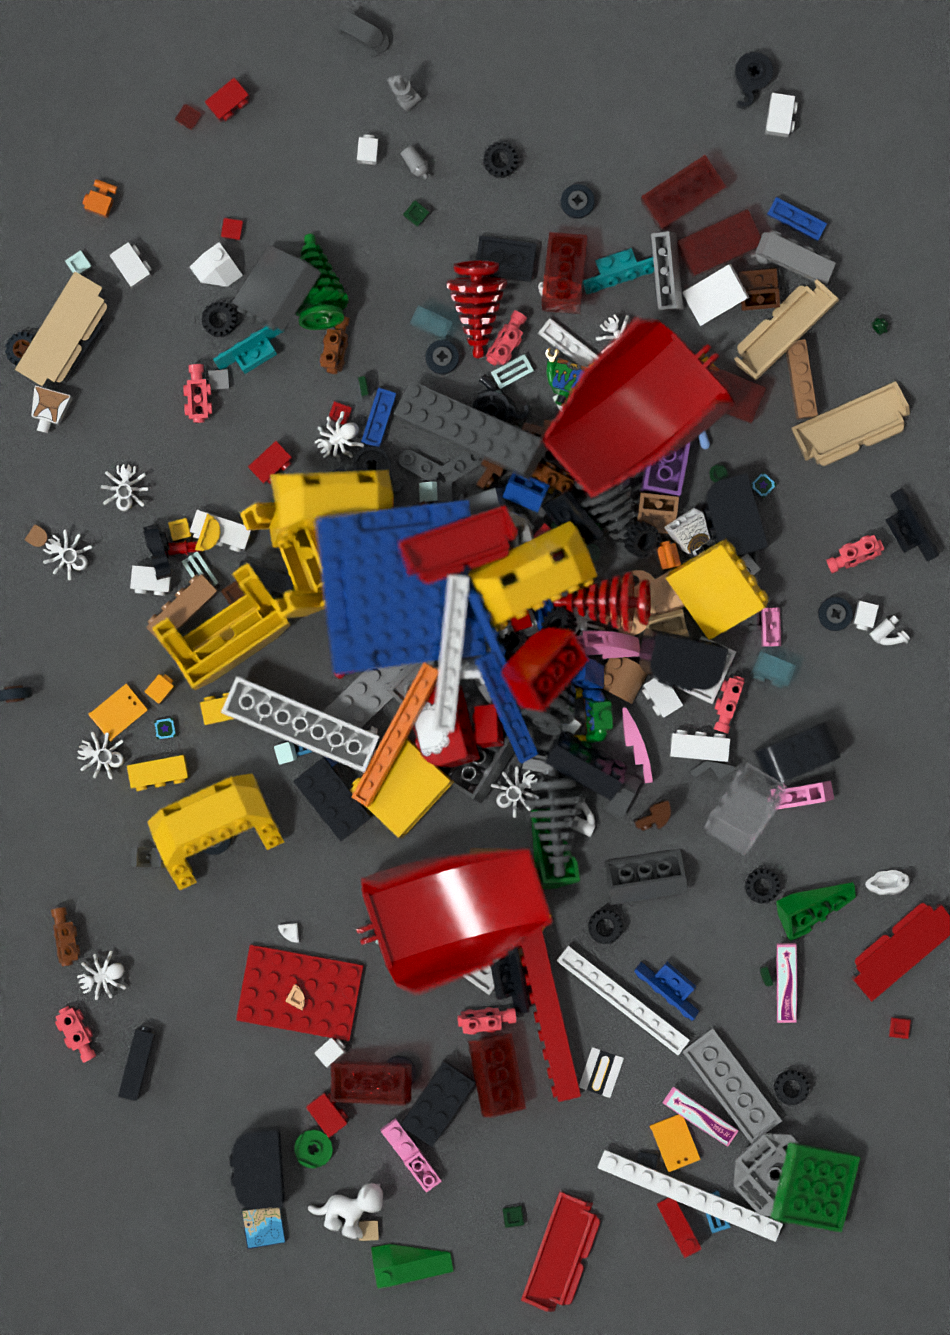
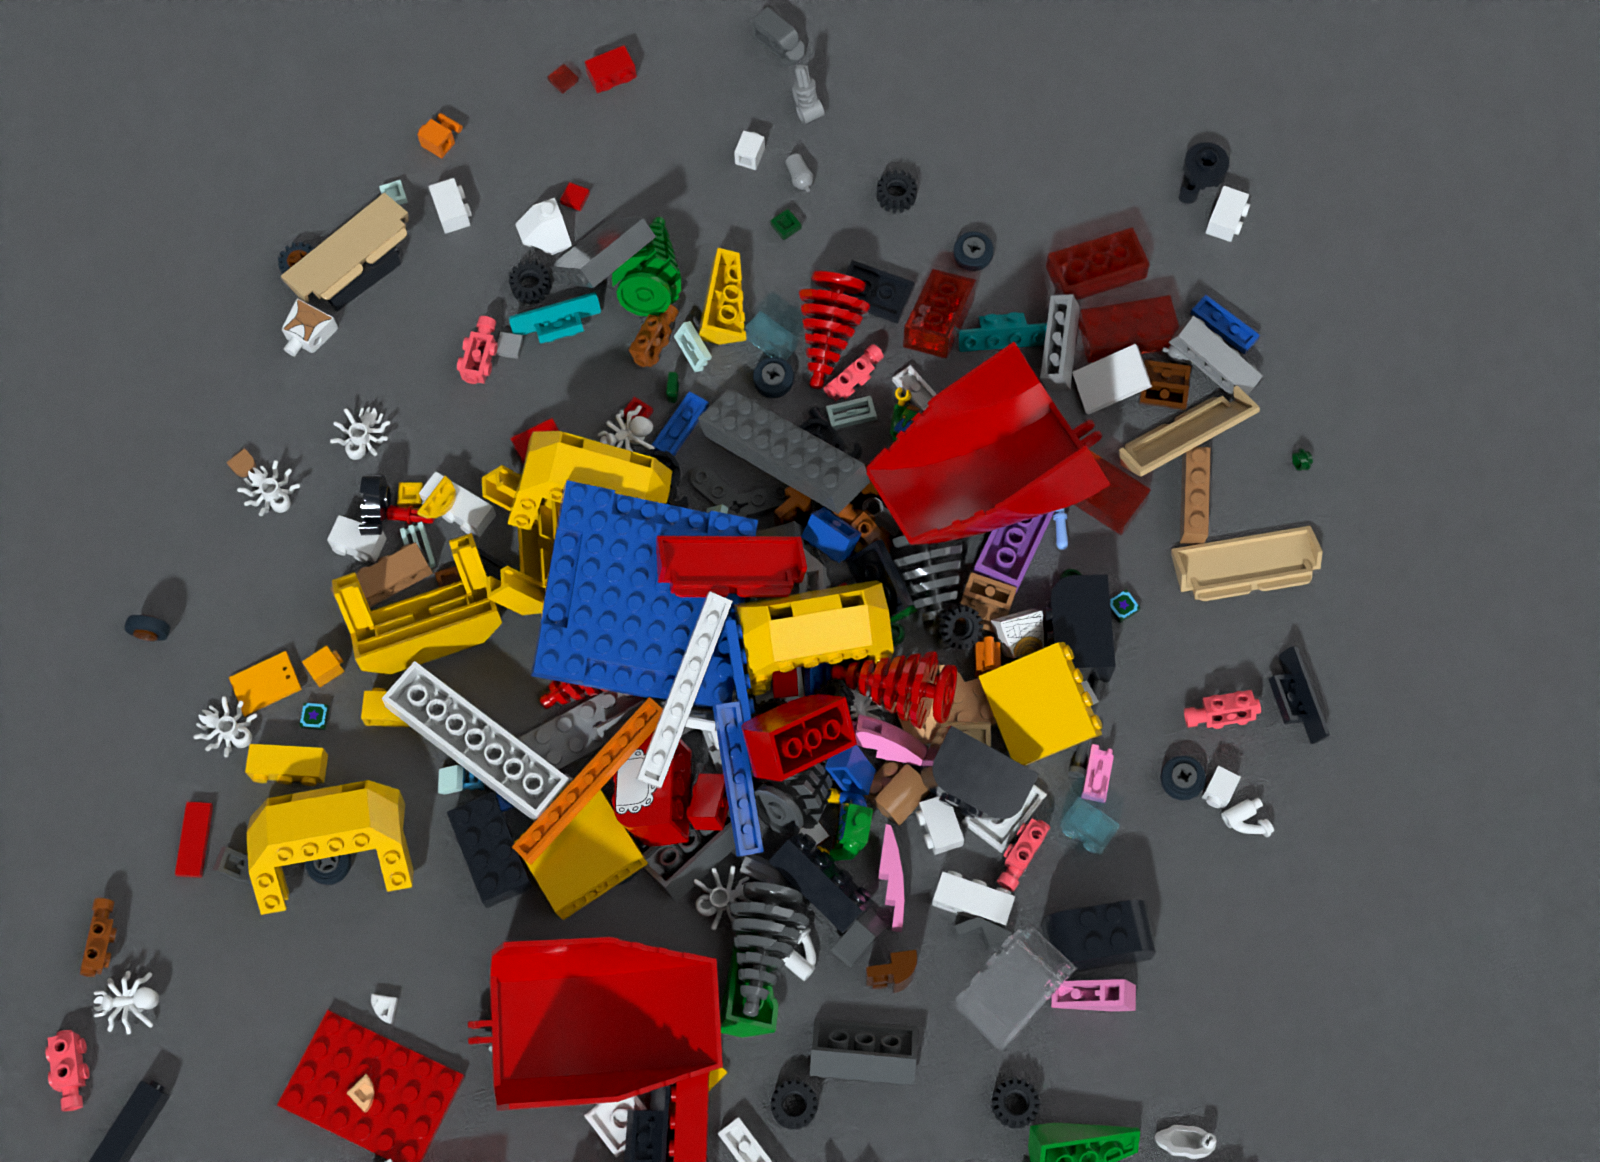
camera: 15 degrees right, 20 degrees down
(107, 845) = (194, 839): none -> red tile
(369, 346) = (692, 346): none -> light aqua tile
(384, 300) = (723, 306): none -> yellow wedge

